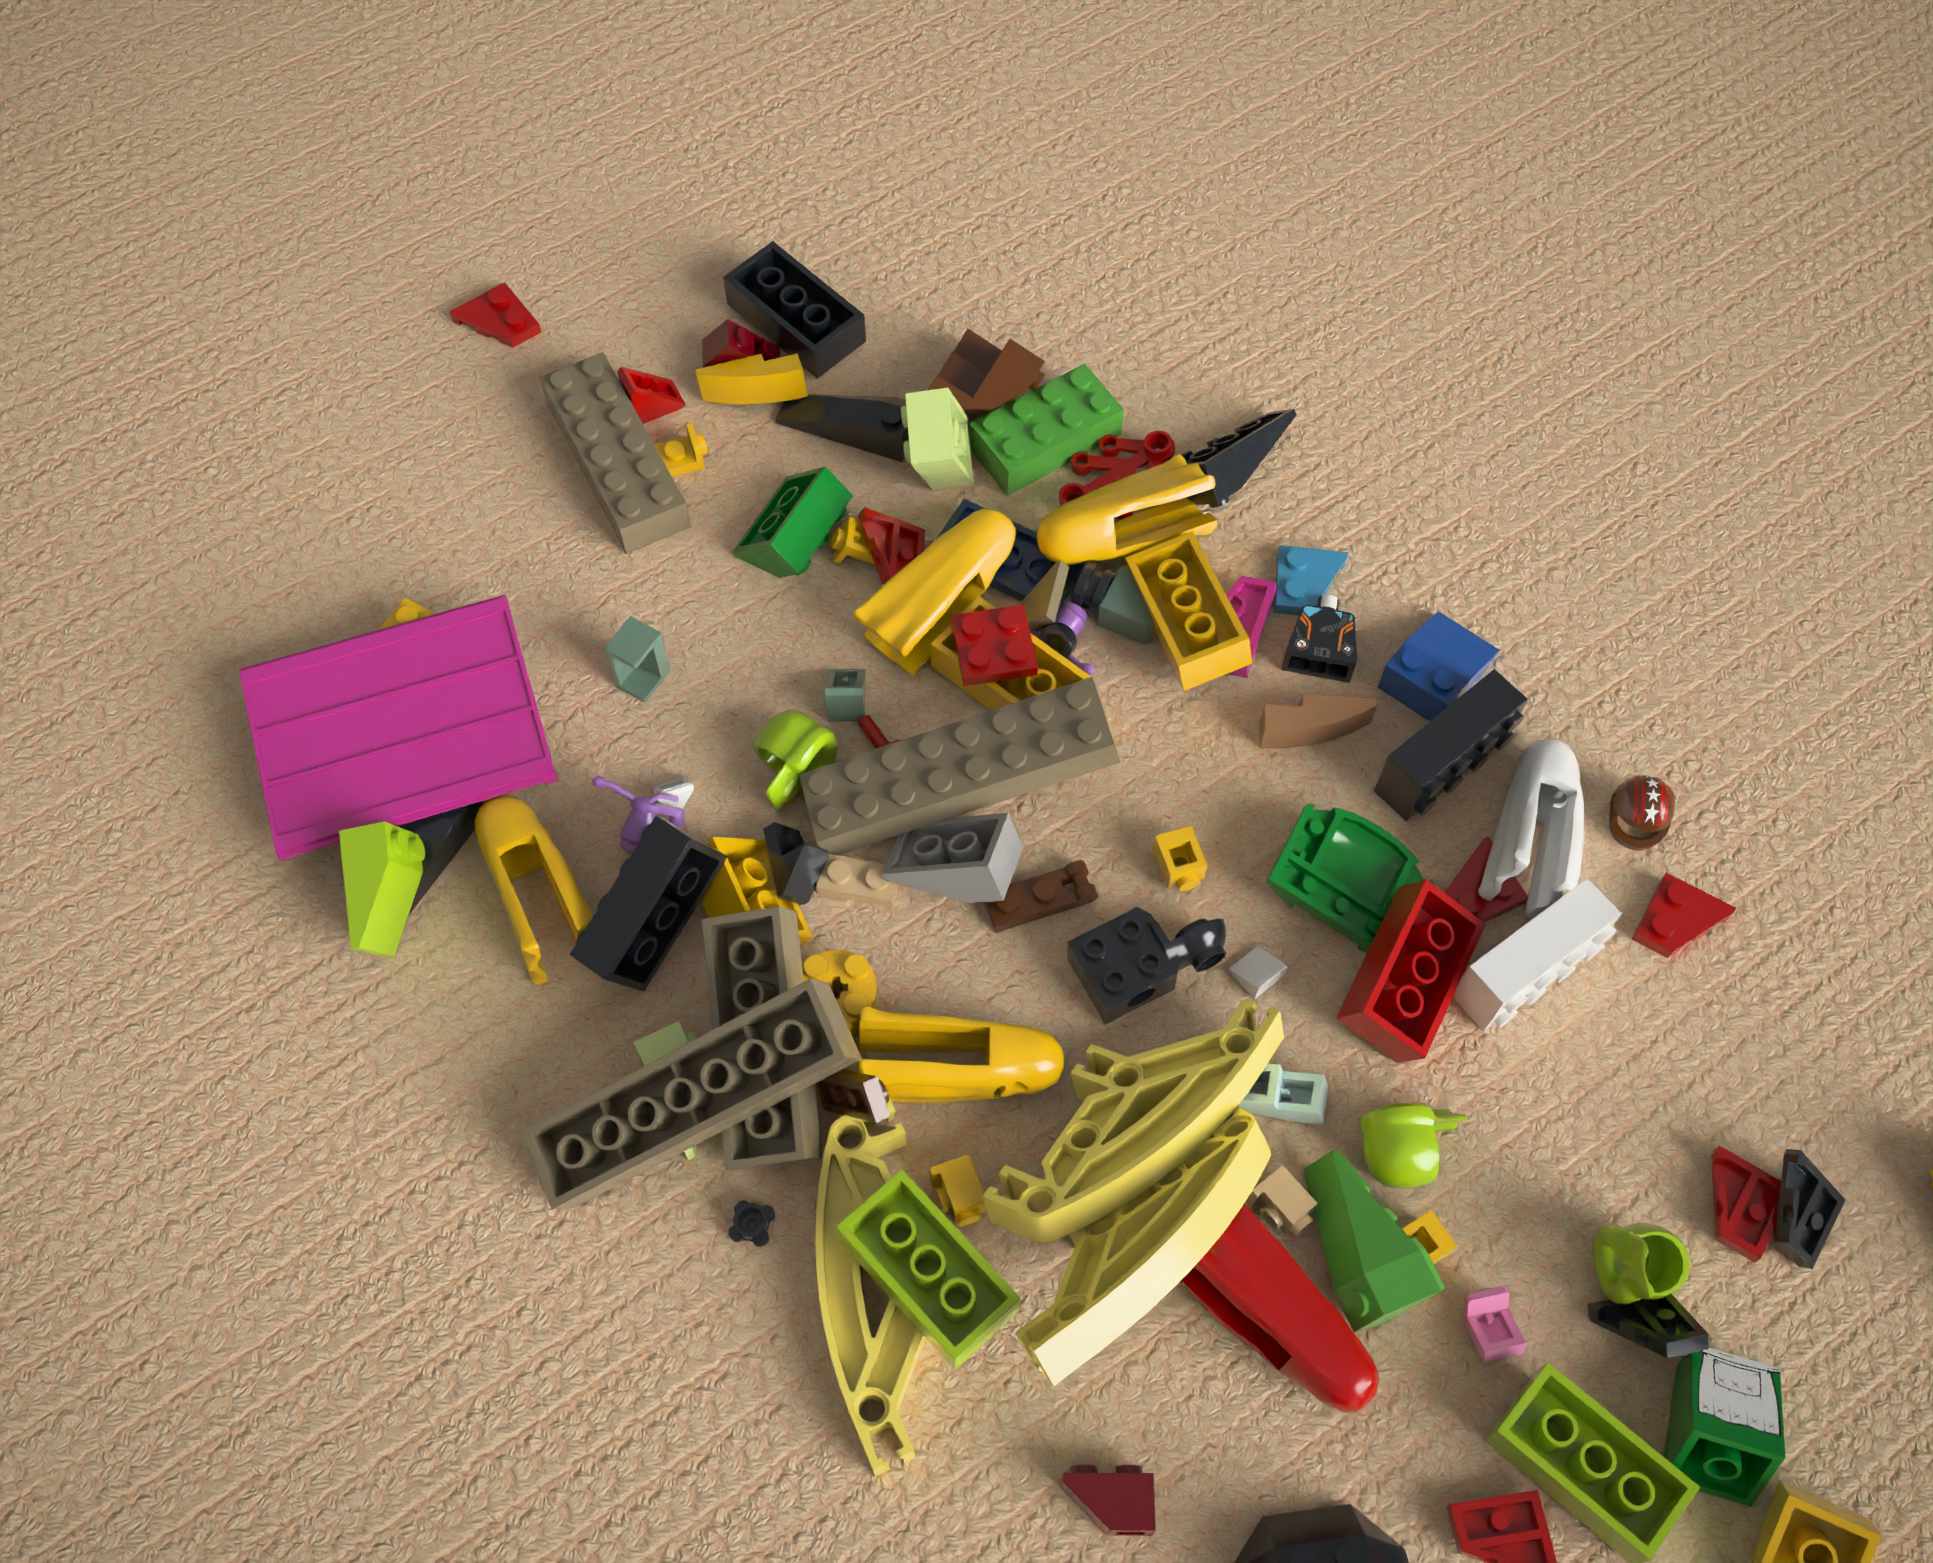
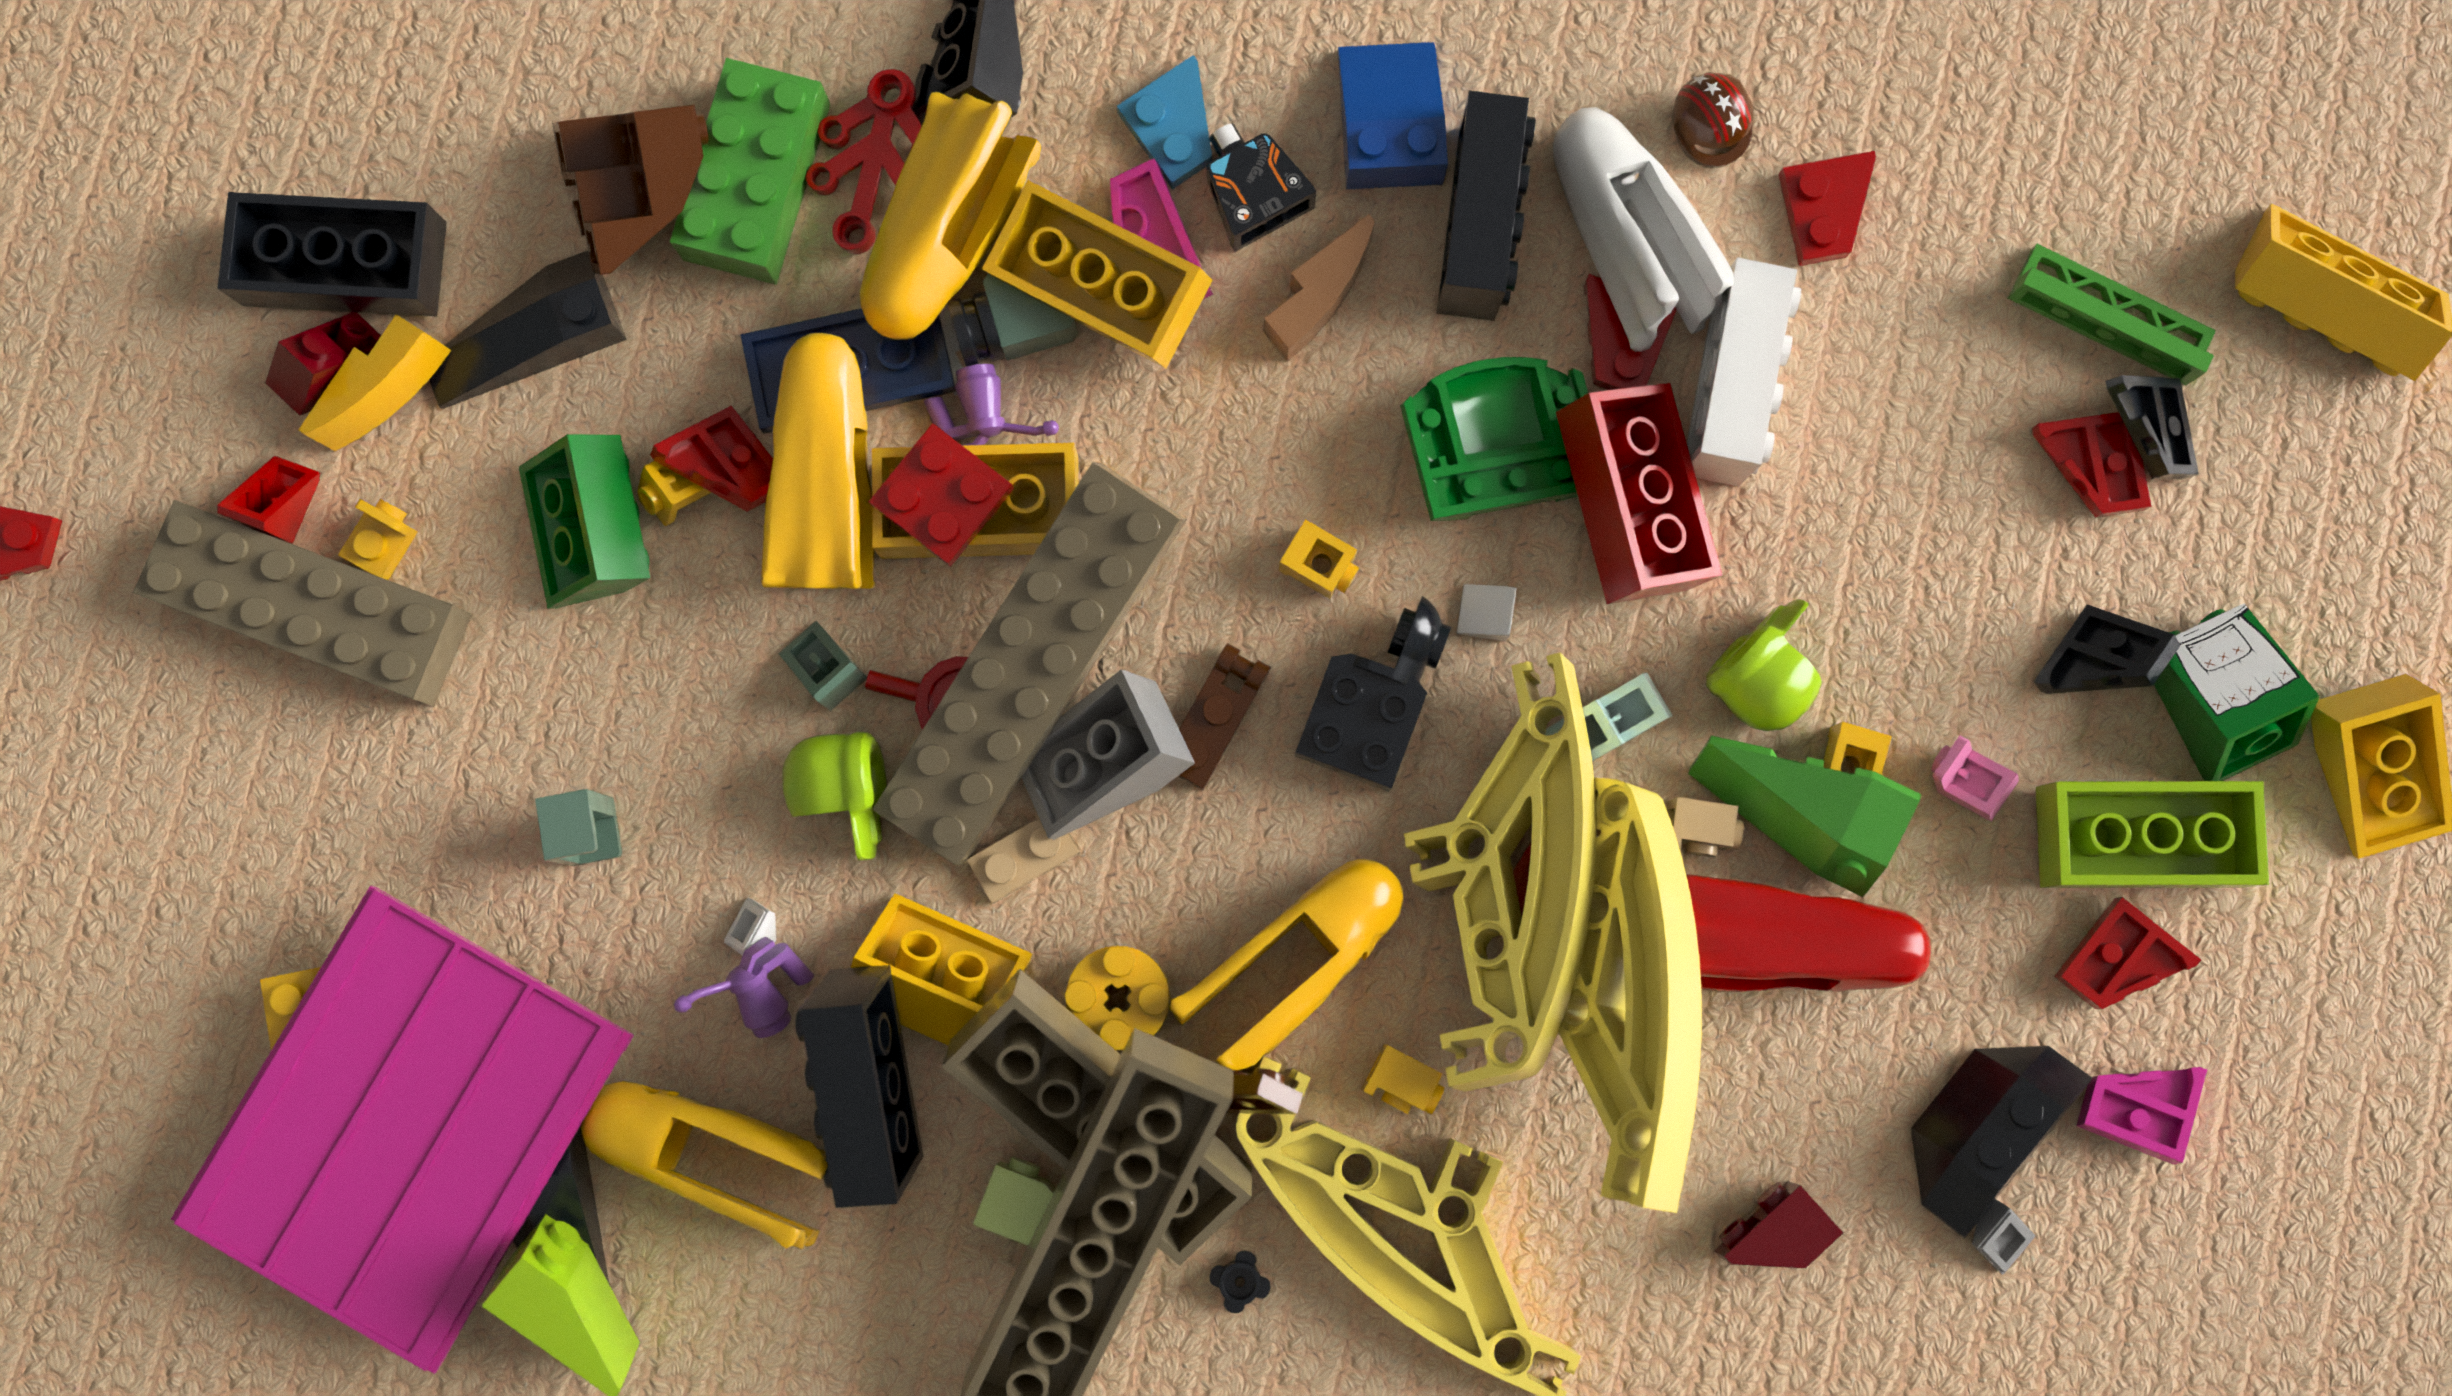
camera: 40 degrees left, 20 degrees up
(793, 863) = (953, 908): black slope -> none
(928, 1269) = (1459, 1197): lime brick -> none
(938, 439) = (662, 300): yellowish green brick -> none
(1044, 599) = (938, 390): dark tan tile -> none
(1060, 638) = (994, 424): black tile -> none
(1639, 1262) = (2058, 609): lime piece -> none
(1820, 1126) = (2107, 321): none -> bright green fence

